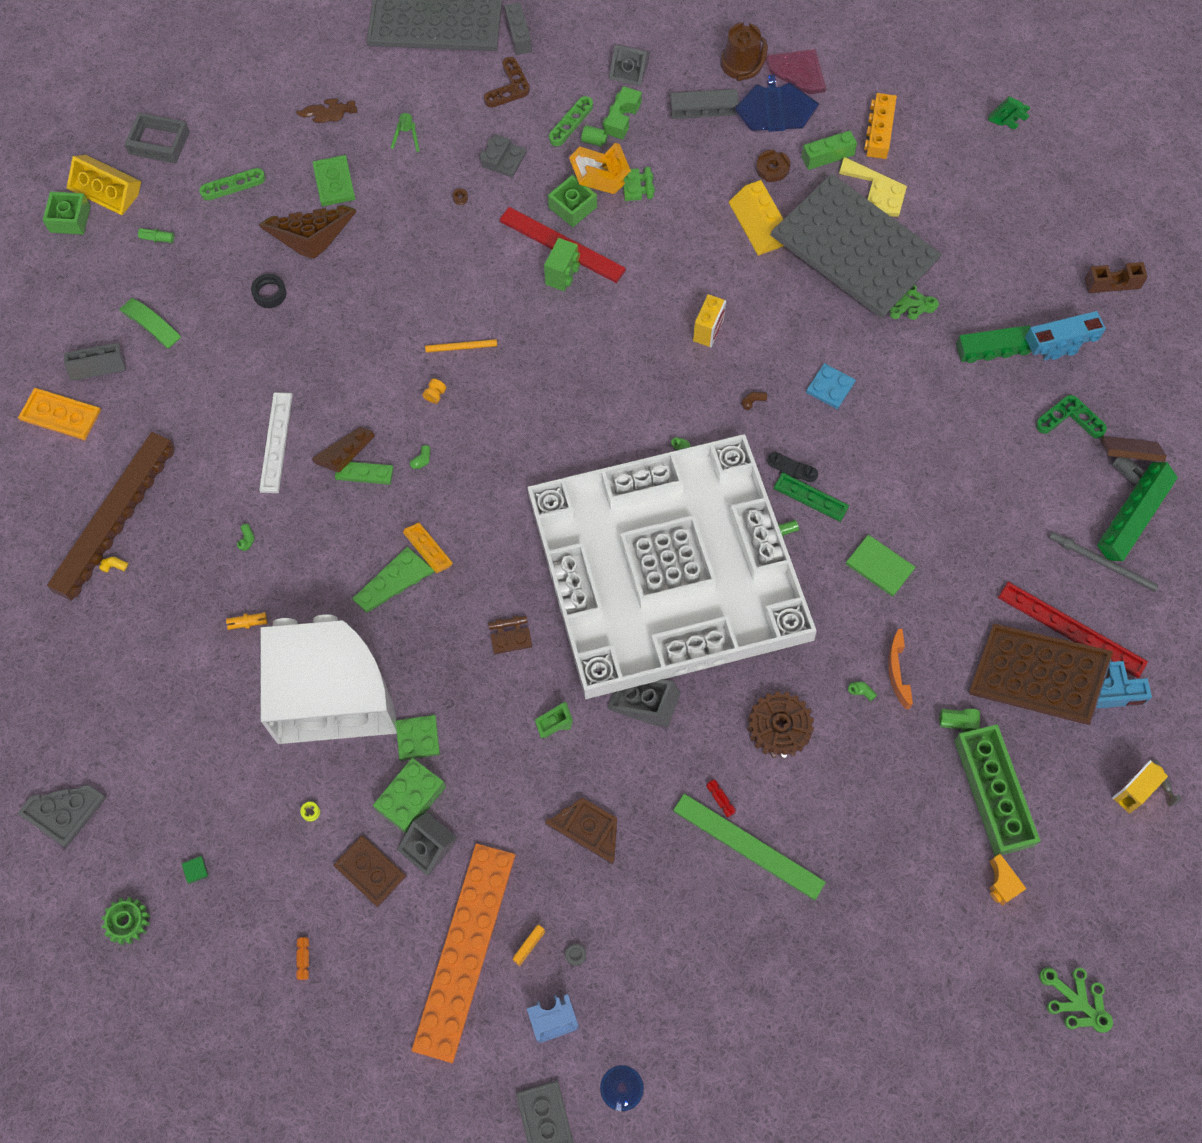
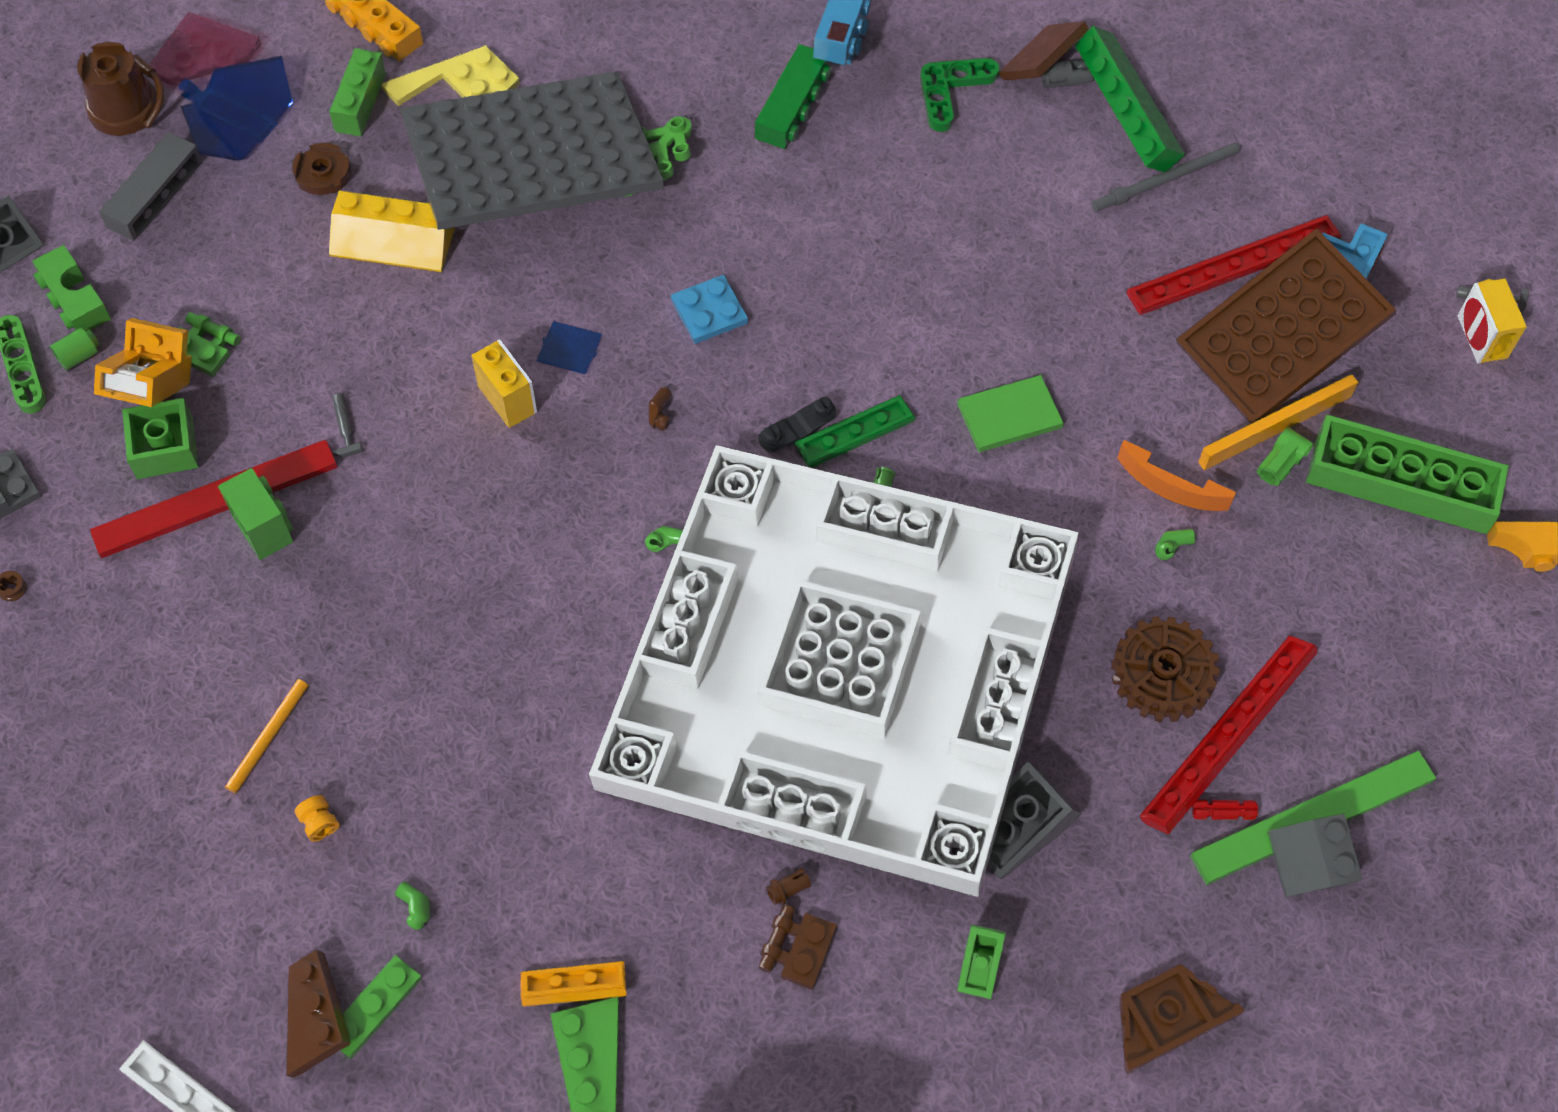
camera: 60 degrees left, 5 degrees down
(536, 611) = (788, 886): none -> reddish brown pin
(639, 271) = (344, 428): none -> dark grey piece
(721, 854) = (1315, 855): none -> dark grey slope
(758, 338) = (569, 347): none -> clear blue piece
(767, 777) = (1228, 735): none -> red tile
(978, 703) = (1277, 422): none -> light orange tile

